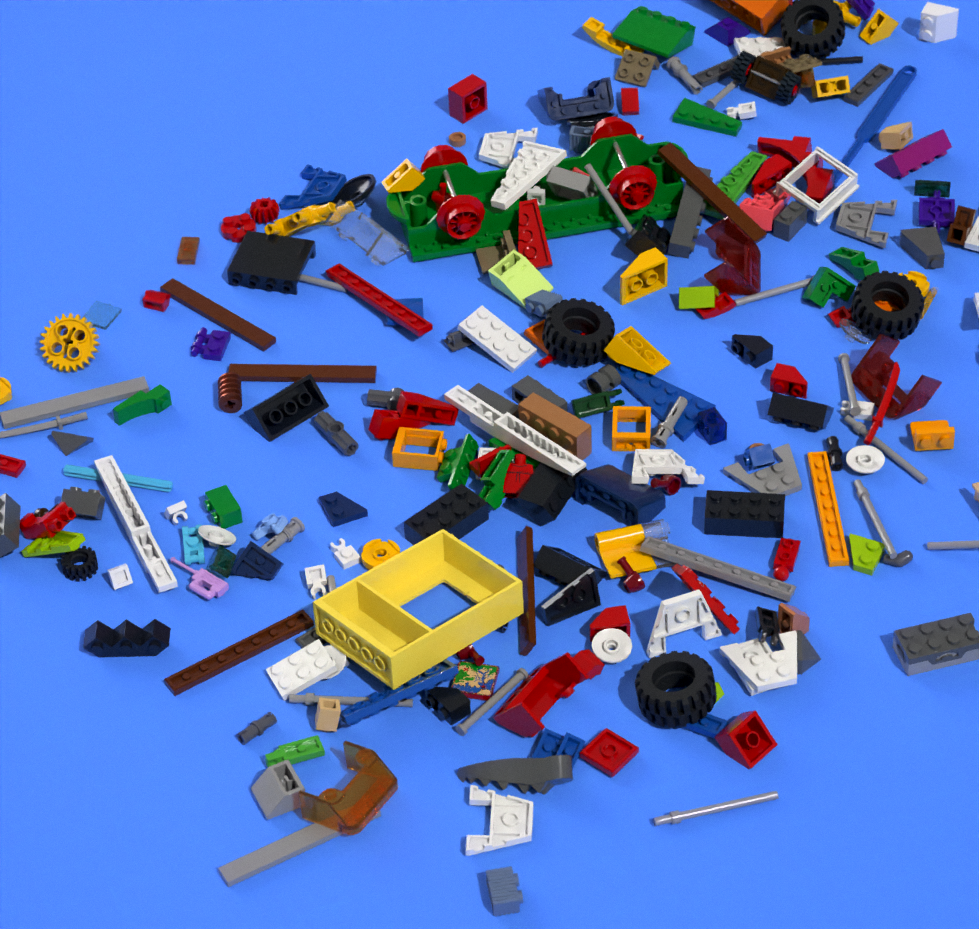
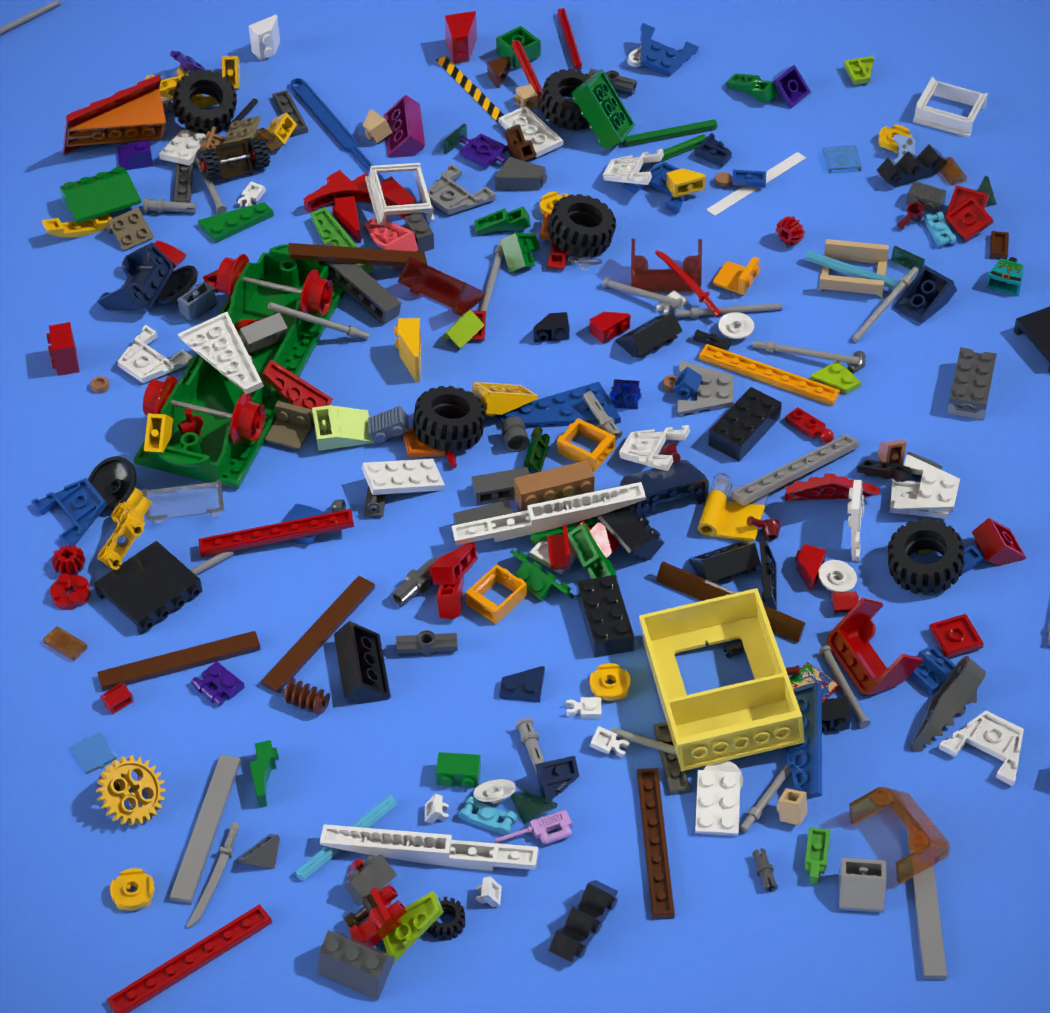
camera: 60 degrees left, 5 degrees up
(269, 525) = (513, 742): light blue piece -> none
(440, 321) = (338, 505): none -> dark grey hinge
(648, 236) = (369, 323): black slope -> none

